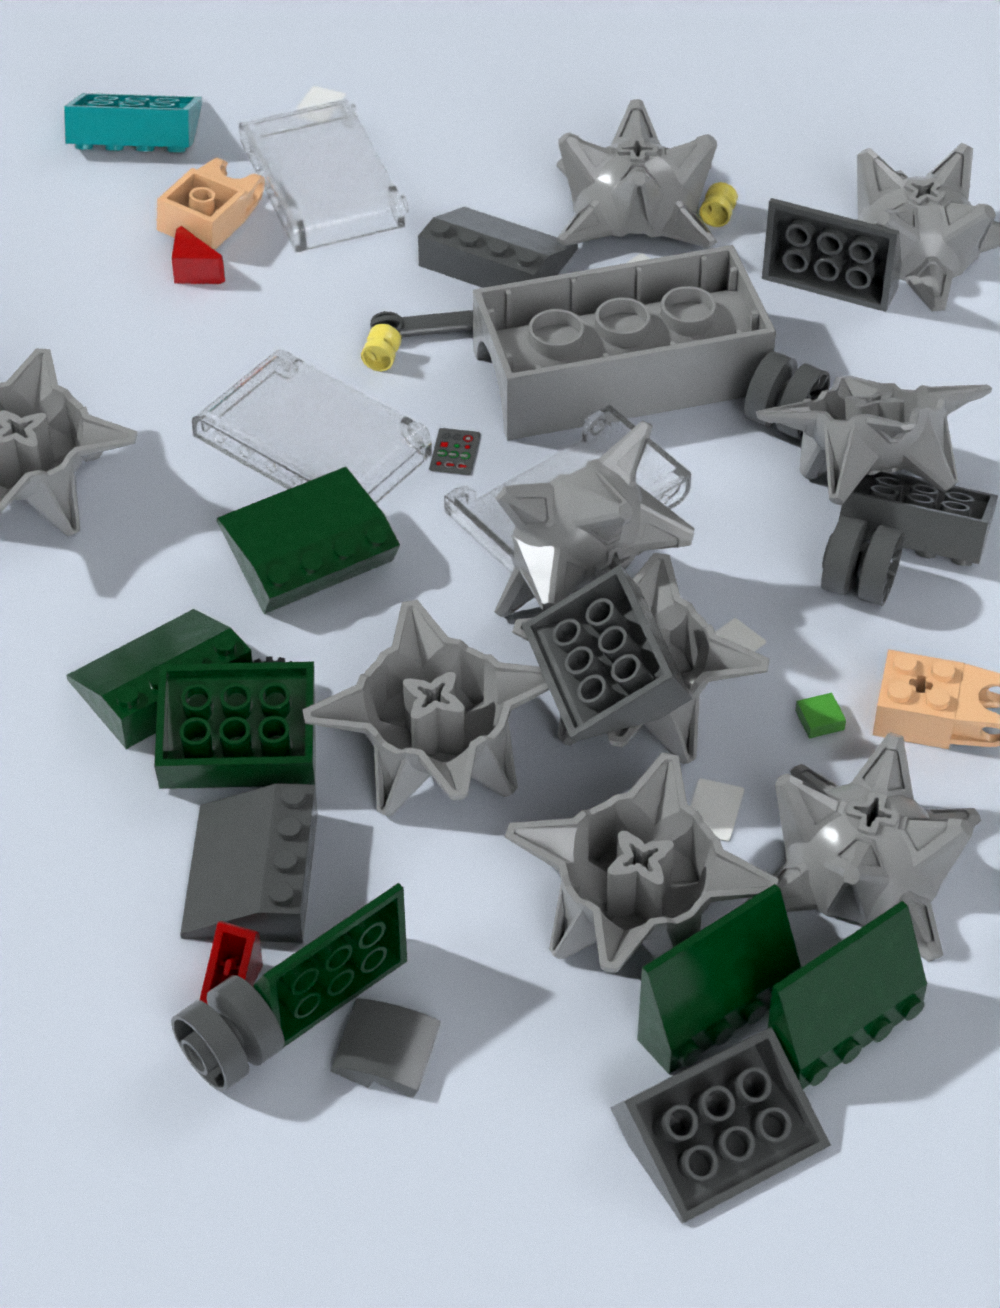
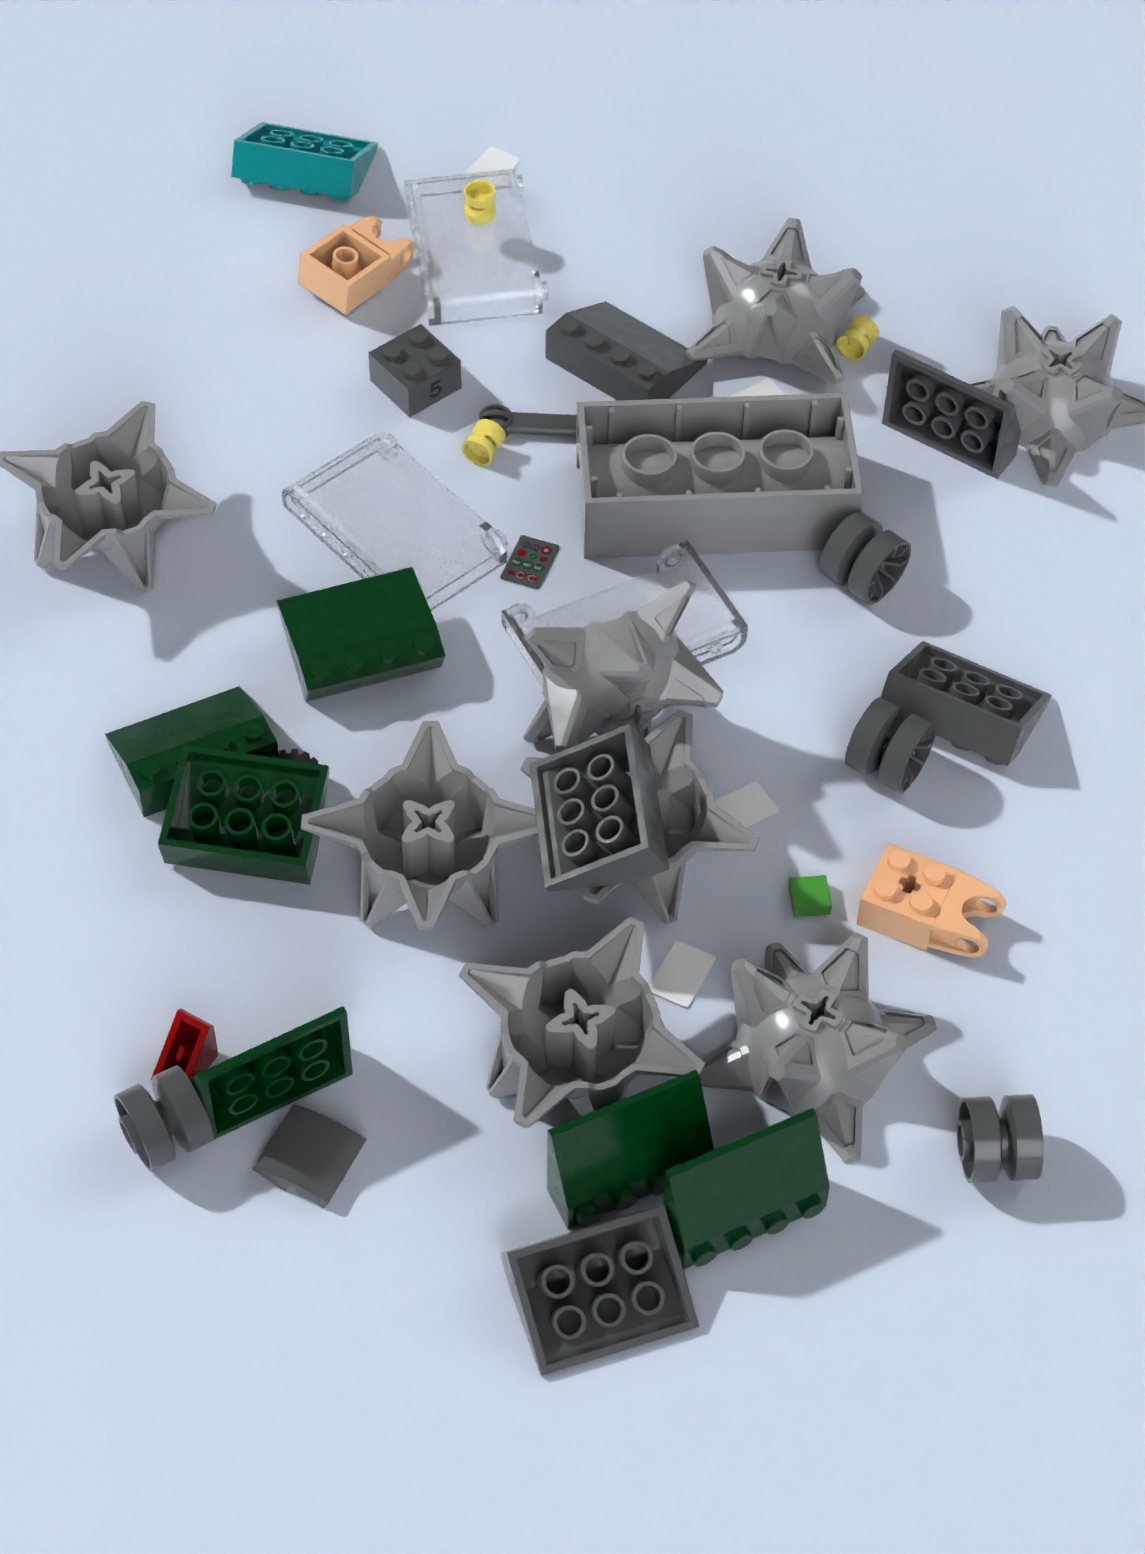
camera: 10 degrees right, 5 degrees up
(195, 261) = (325, 322): red slope -> none
(253, 863) = (232, 955): dark grey slope -> none
(295, 291) = (415, 370): none -> dark grey brick
(322, 130) = (479, 202): none -> light yellow wheel
(874, 429) = (936, 611): light grey piece -> none

